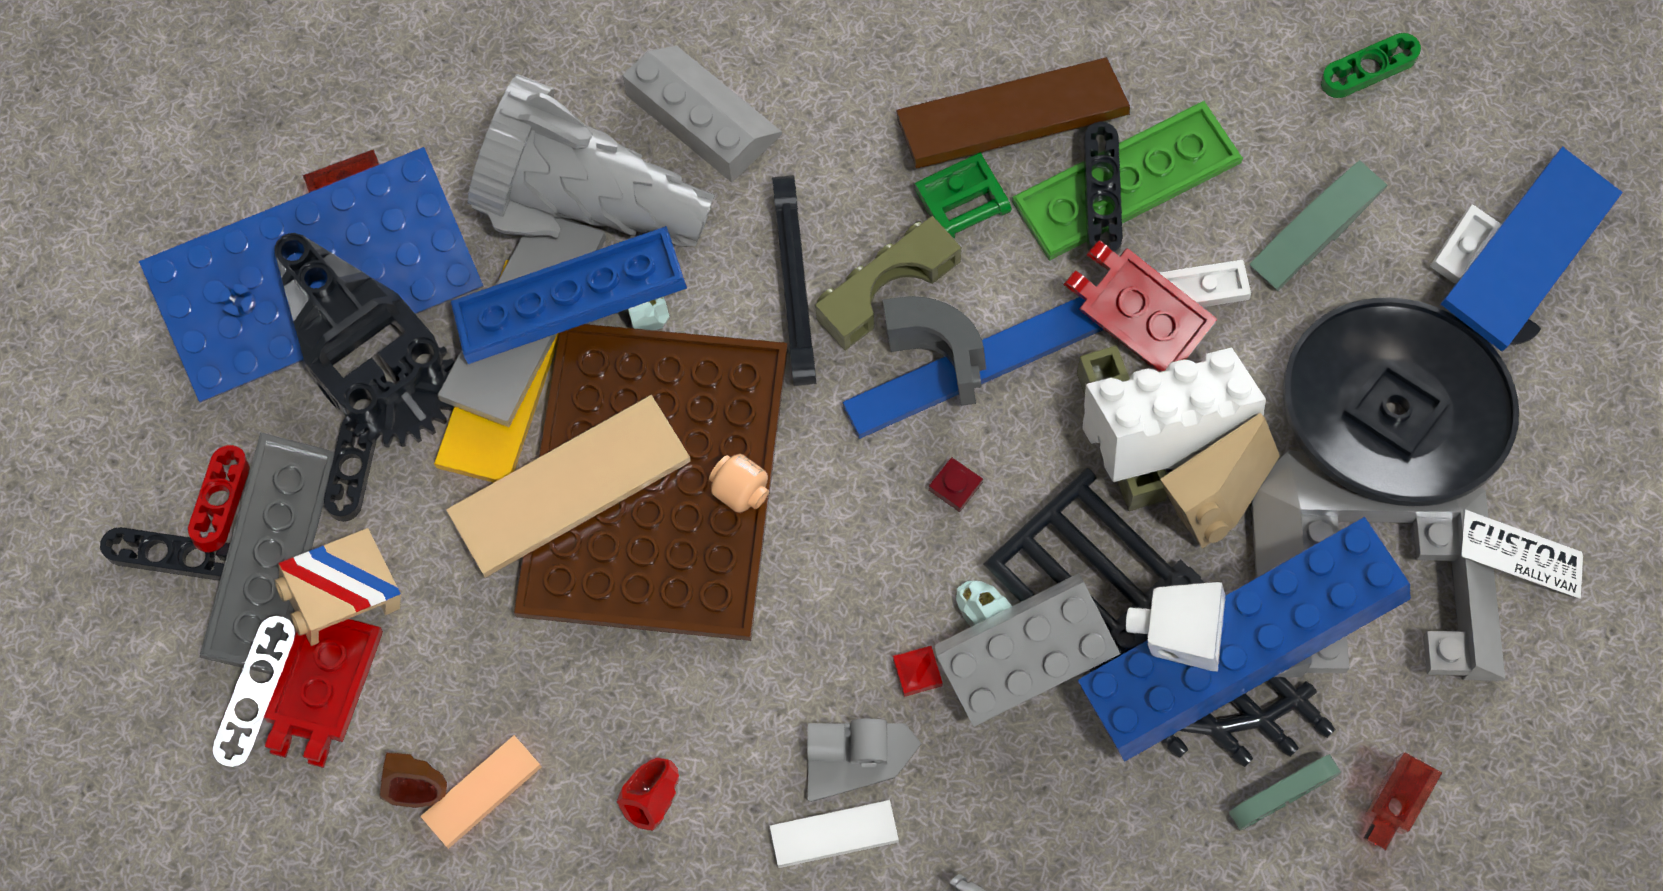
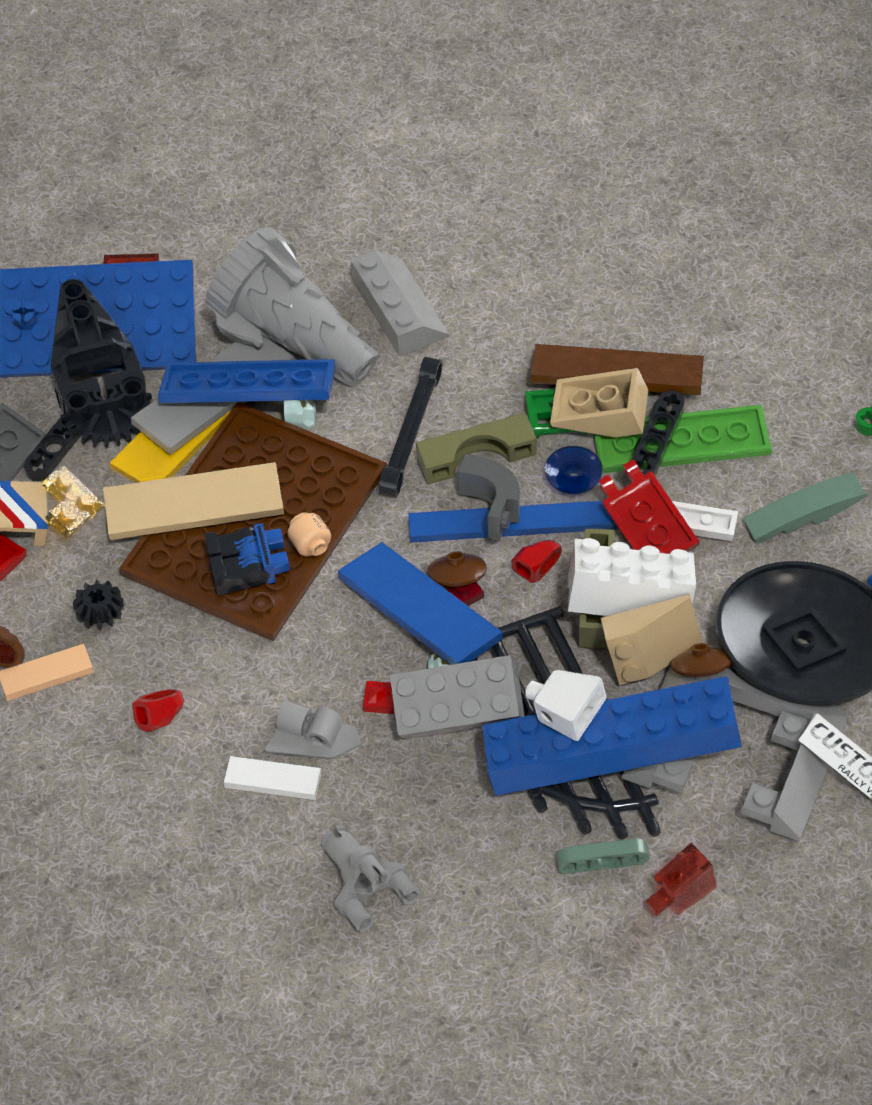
camera: 20 degrees right, 15 degrees down
(419, 537) = (75, 499): none -> clear yellow plate
(492, 677) = (98, 604): none -> black gear
(672, 546) = (244, 558): none -> hips
(917, 530) = (420, 605): none -> blue tile
(937, 460) = (457, 569): none -> reddish brown dish
(1018, 171) = (601, 403): none -> tan slope
(1024, 256) = (573, 461): none -> clear blue dish
(1027, 411) = (536, 560): none -> red rock
(1296, 489) = (700, 661): none -> reddish brown dish

